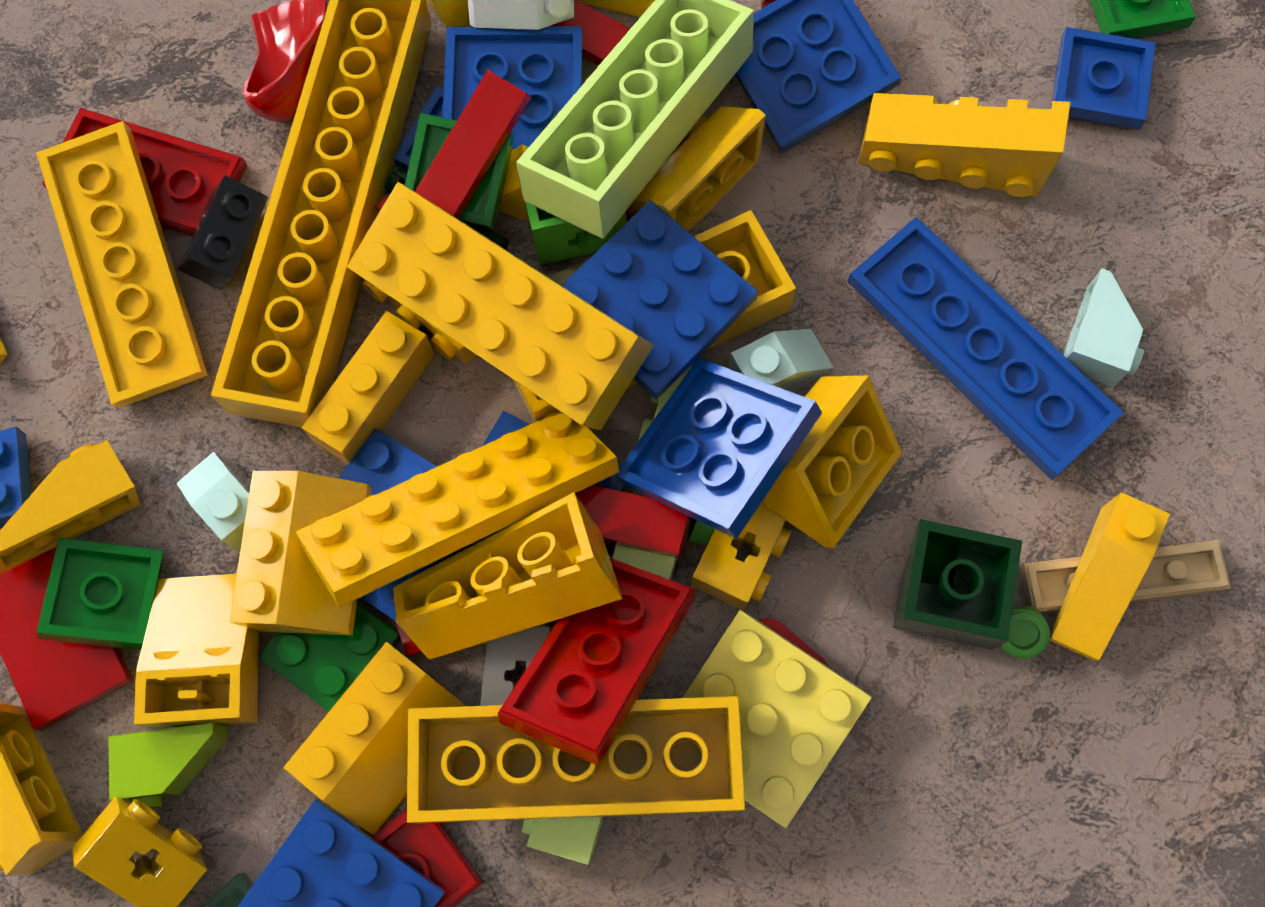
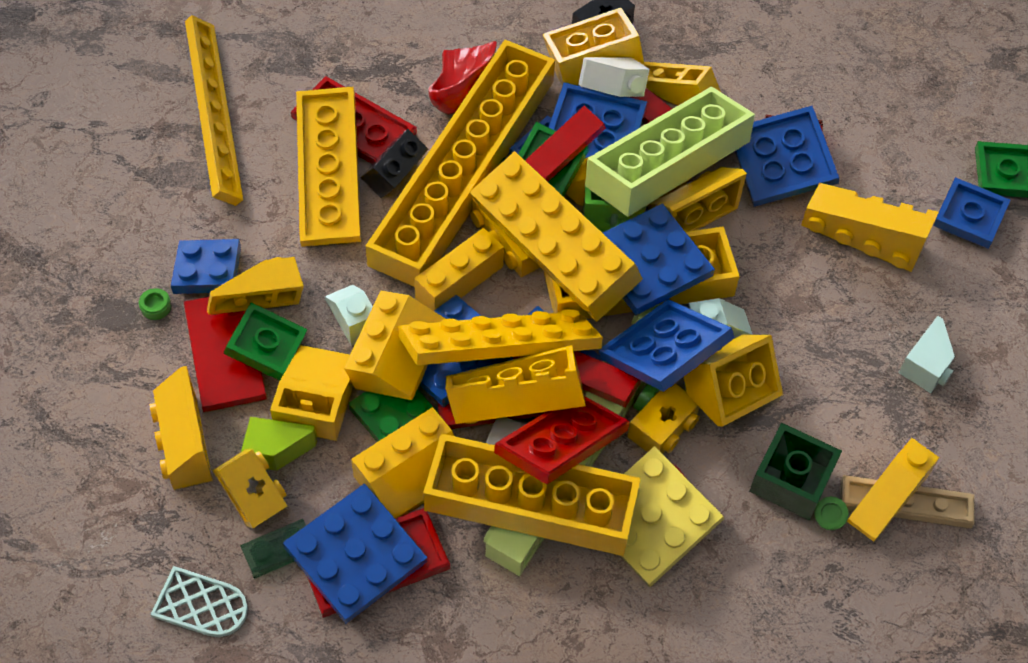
camera: 10 degrees right, 15 degrees down
(985, 347) = (852, 347): blue plate -> none

